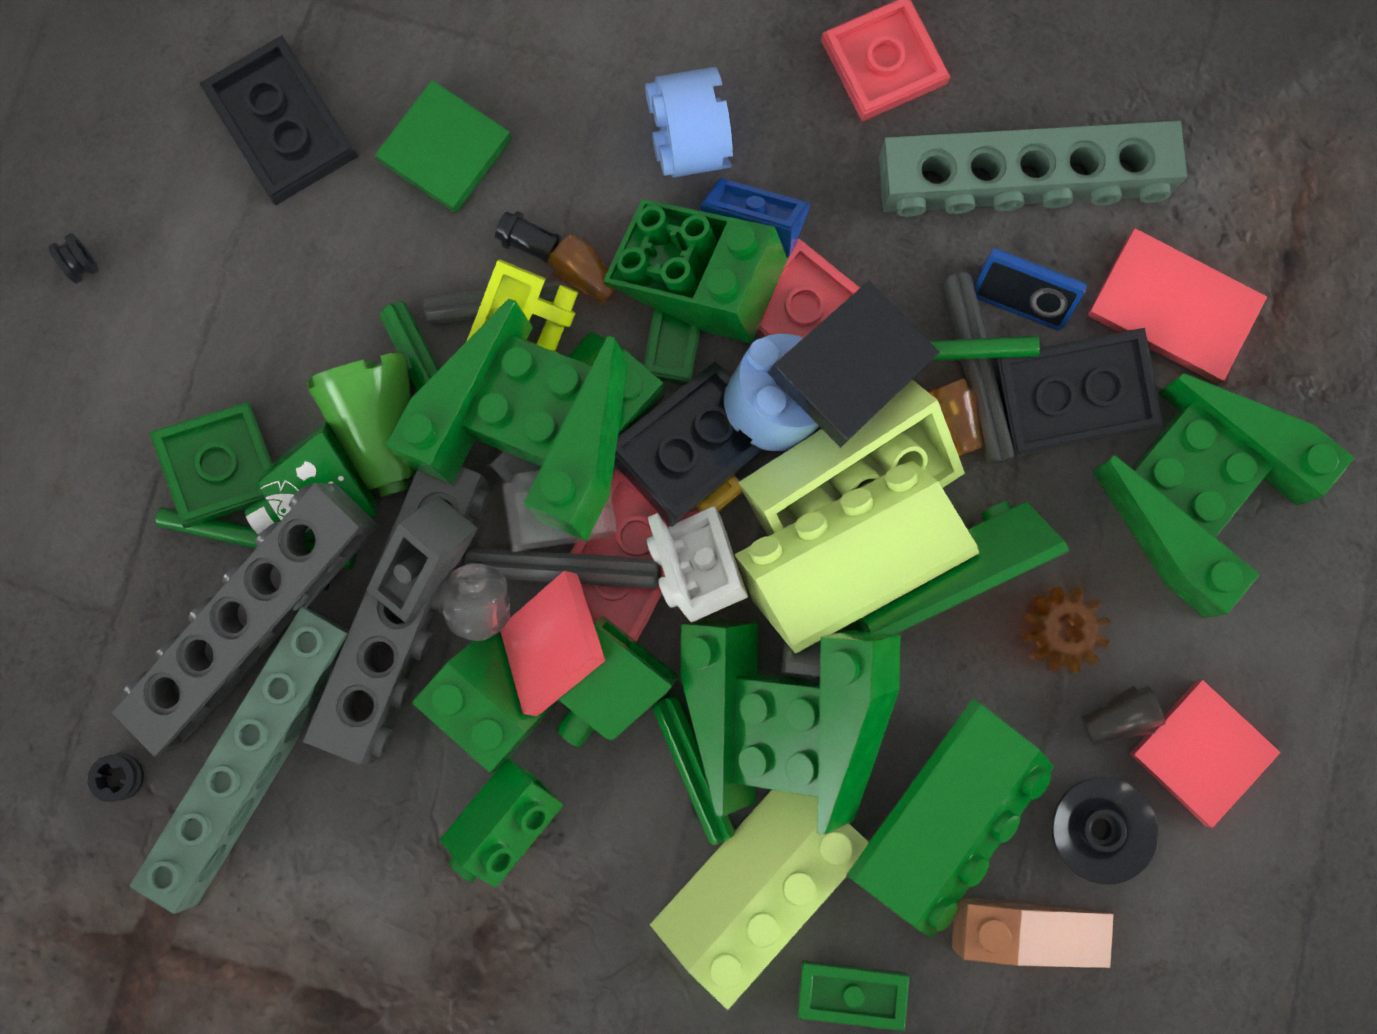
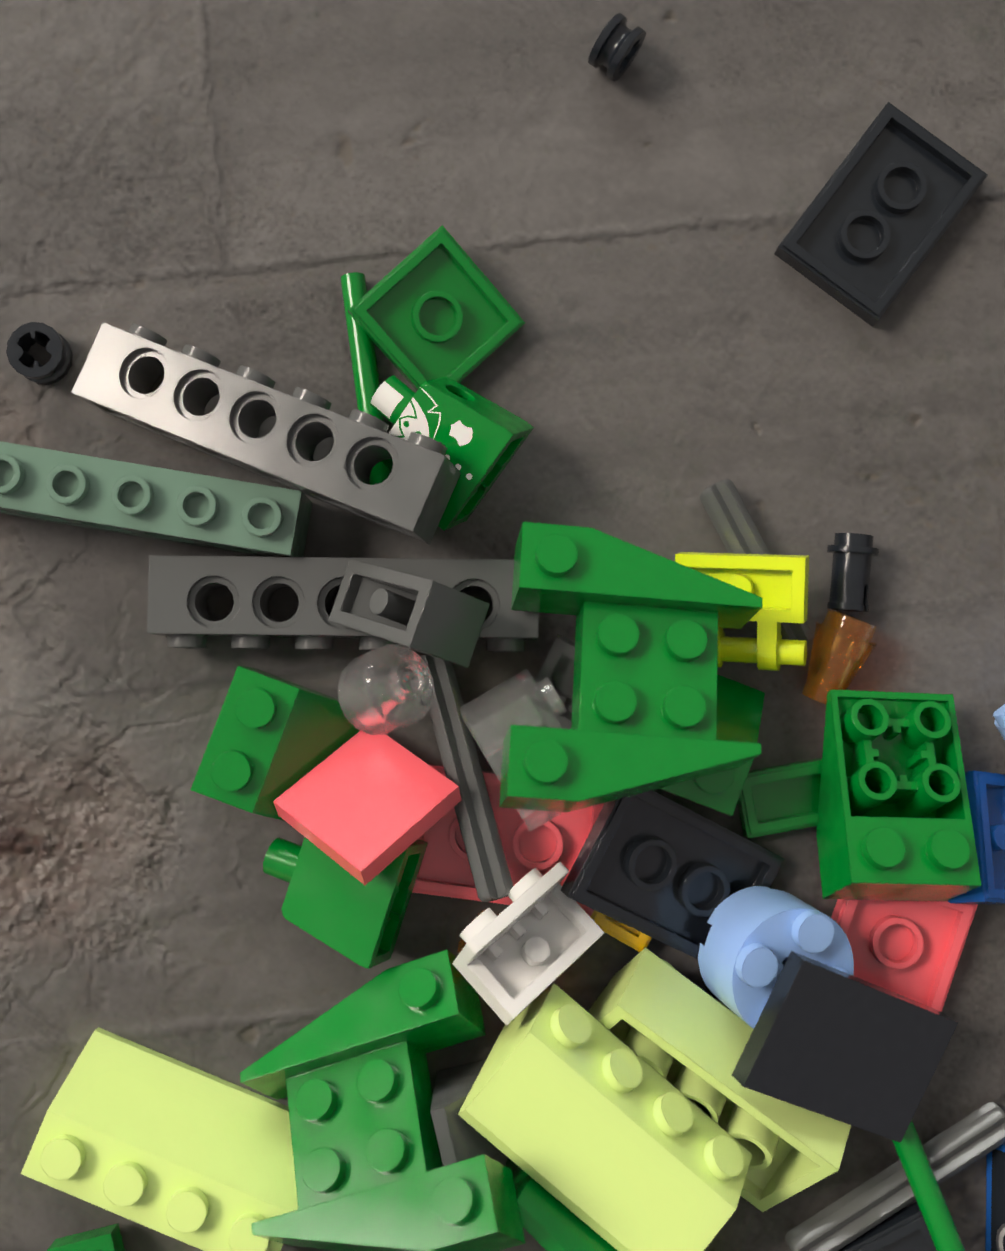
camera: 65 degrees right, 5 degrees up
(362, 410) = (557, 475): bright green cone -> none
(410, 341) = (659, 490): green axle -> none
(443, 146) = (924, 425): green tile -> none
(500, 824) = (140, 819): green brick -> none
(690, 766) = (284, 1018): green axle -> none
(960, 414) = (836, 1191): clear orange cone -> none

